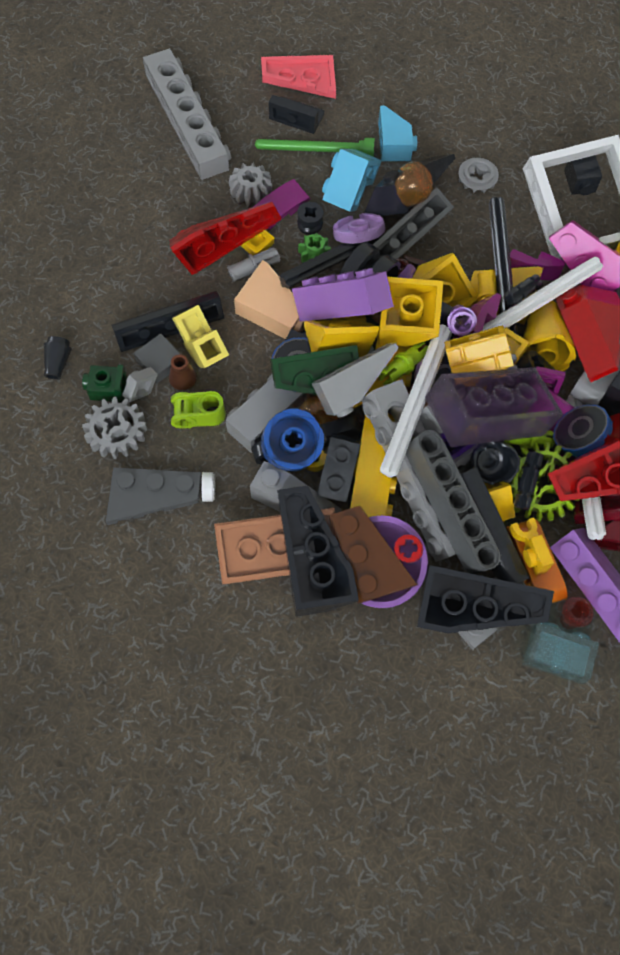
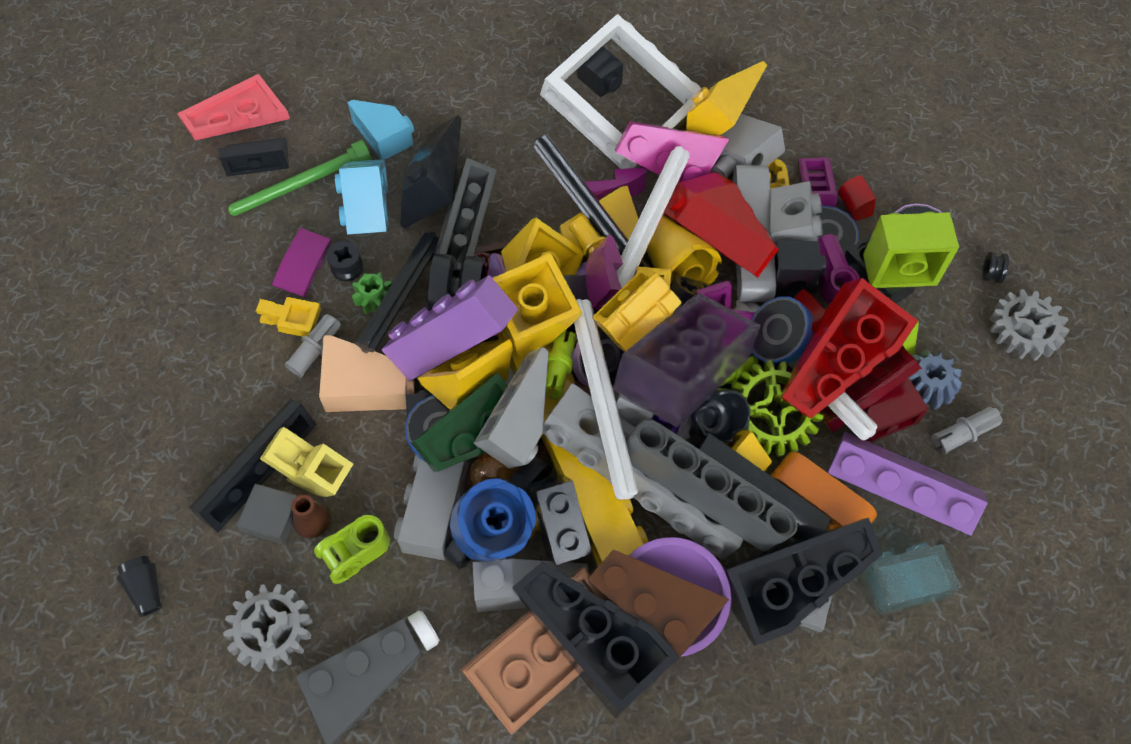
camera: 30 degrees left, 5 degrees down
(105, 382) = (231, 588): dark green brick -> none
(139, 384) = (266, 558): light grey plate -> none
(186, 114) = (128, 217): light grey brick -> none
(215, 238) = (249, 344): red wedge -> none
(250, 184) = (253, 258): light grey gear -> none
(359, 230) = (410, 245): lavender tile -> none
(402, 541) = (707, 568): red bush -> none
(414, 184) = (445, 166): clear orange hair -> none
(464, 325) = (593, 284): medium lavender cone -> none
(483, 168) = (494, 114): light grey gear -> none
(523, 290) = (626, 219): black axle -> none
(528, 480) = (764, 415): black axle -> none
(535, 551) = (819, 483): yellow plate -> none
(576, 613) = (900, 527): clear red cone -> none

